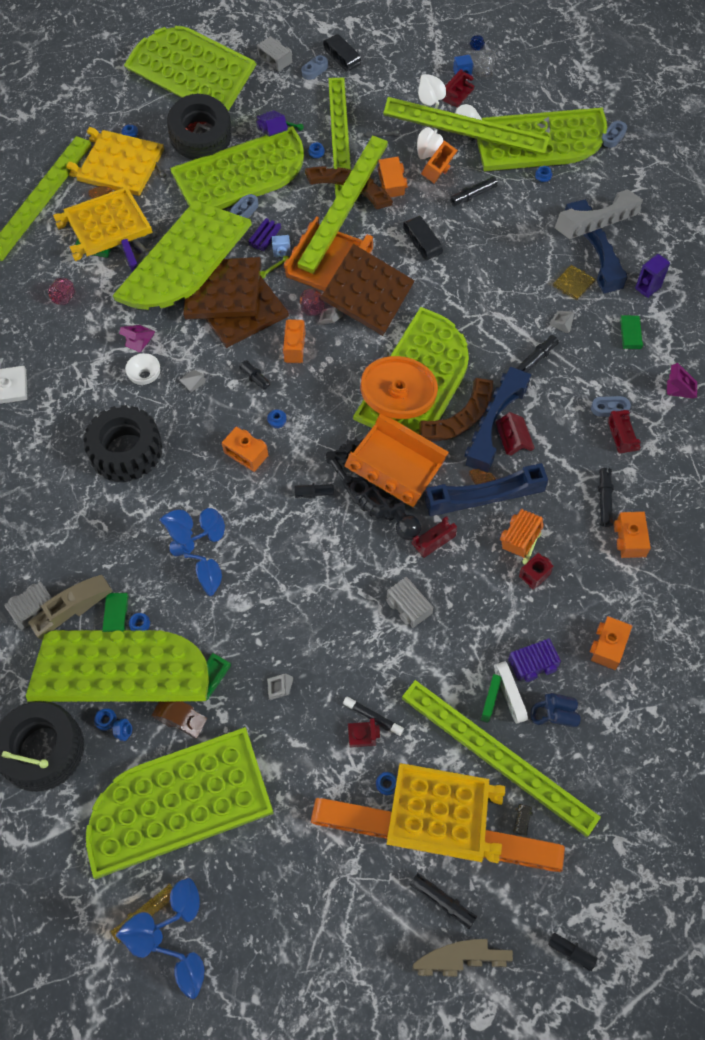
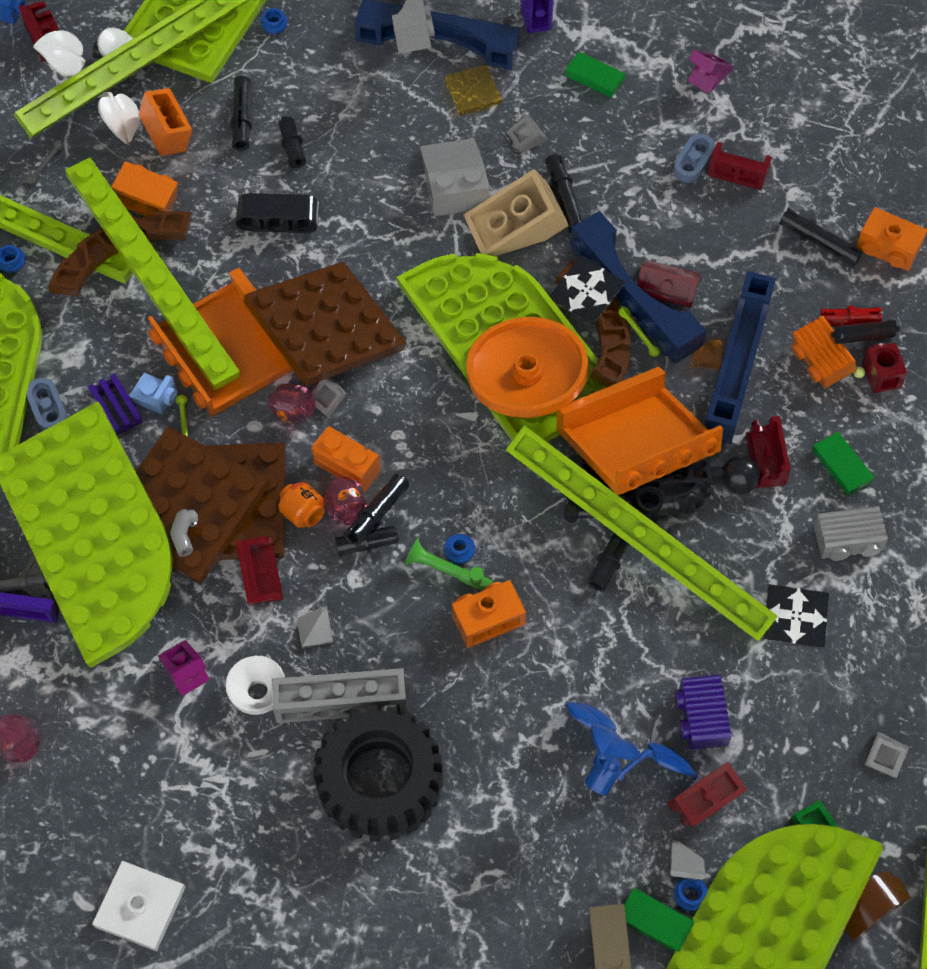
camera: 60 degrees left, 0 degrees up
(154, 611) = (685, 862): none -> light grey slope
(157, 405) = (337, 694): none -> light grey fence
(197, 602) = (707, 795): none -> dark red hinge
(200, 290) = (178, 532): none -> light grey arm
(205, 336) = (259, 570): none -> dark red hinge
(248, 578) = (704, 712): none -> dark purple brick
(255, 336) = (301, 505): none -> orange head
(261, 428) = (472, 577): none -> bright green piece
(264, 366) = (370, 516): none -> black pin
(269, 352) = (344, 500): none -> clear pink head
(333, 496) = (642, 533): none -> lime plate
(341, 601) = (800, 615): none -> black sticker
(456, 580) = (842, 463): none -> green tile
(472, 221) = (292, 142): none -> black axle
(475, 394) = (586, 290): none -> black sticker
(475, 421) = (624, 312): none -> lime hinge
(502, 341) = (516, 216): none -> tan slope
(506, 301) = (454, 176): none -> light grey slope
(550, 547) = (865, 331): none -> black axle
(561, 538) = (851, 315): none -> red pin

